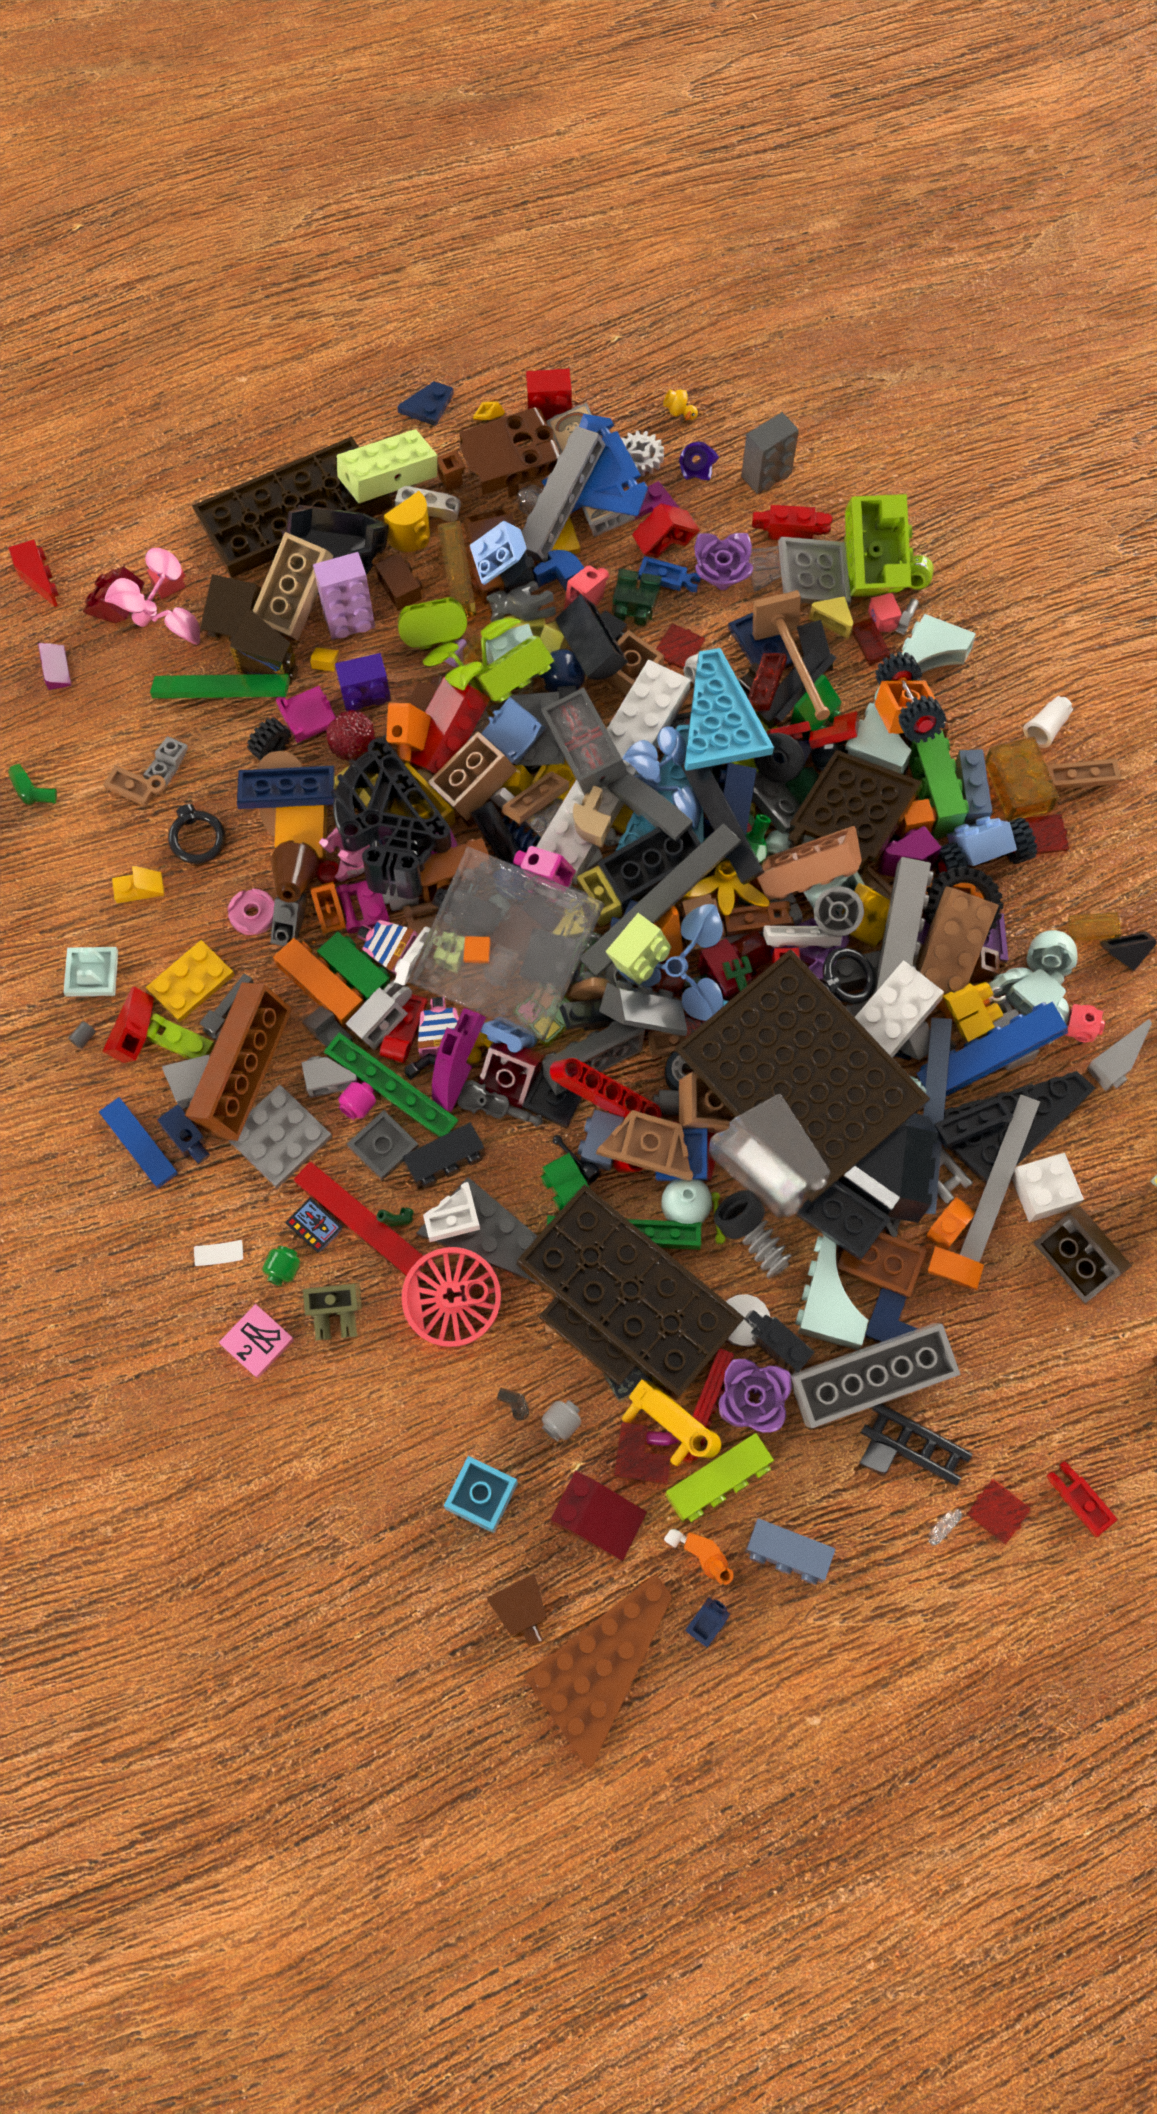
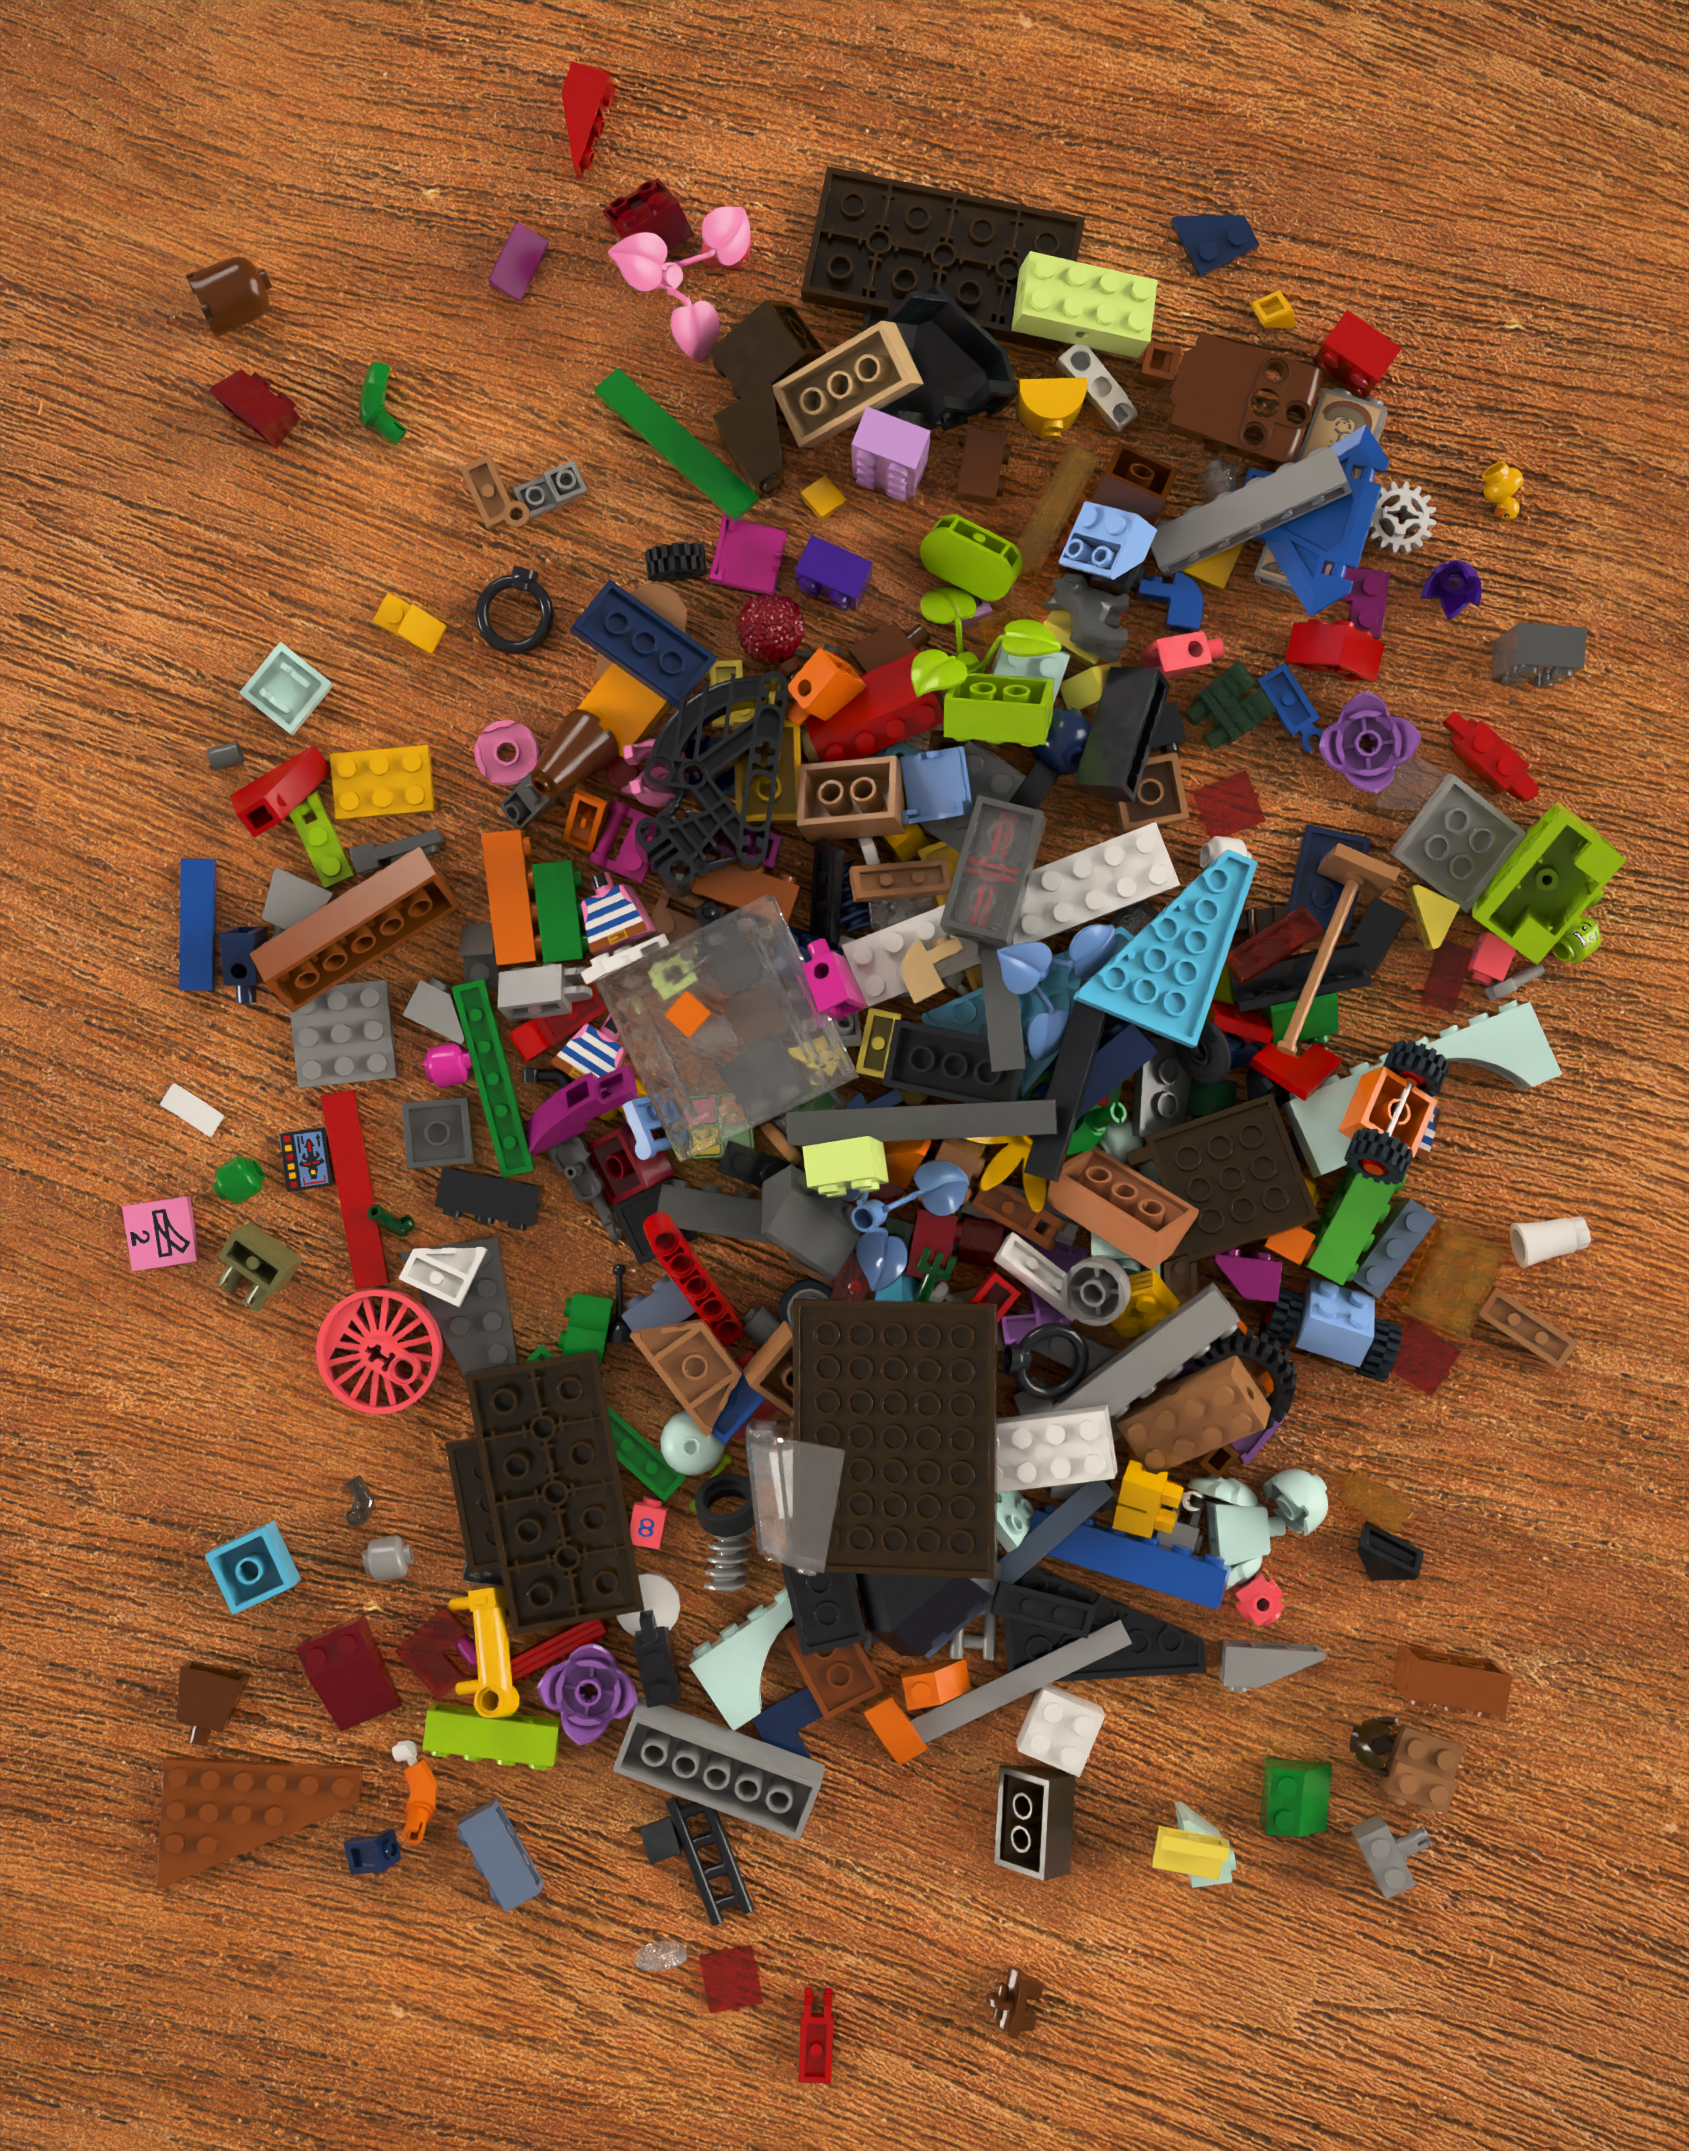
camera: 40 degrees right, 20 degrees up
(702, 1266) = (648, 1522): none -> coral brick

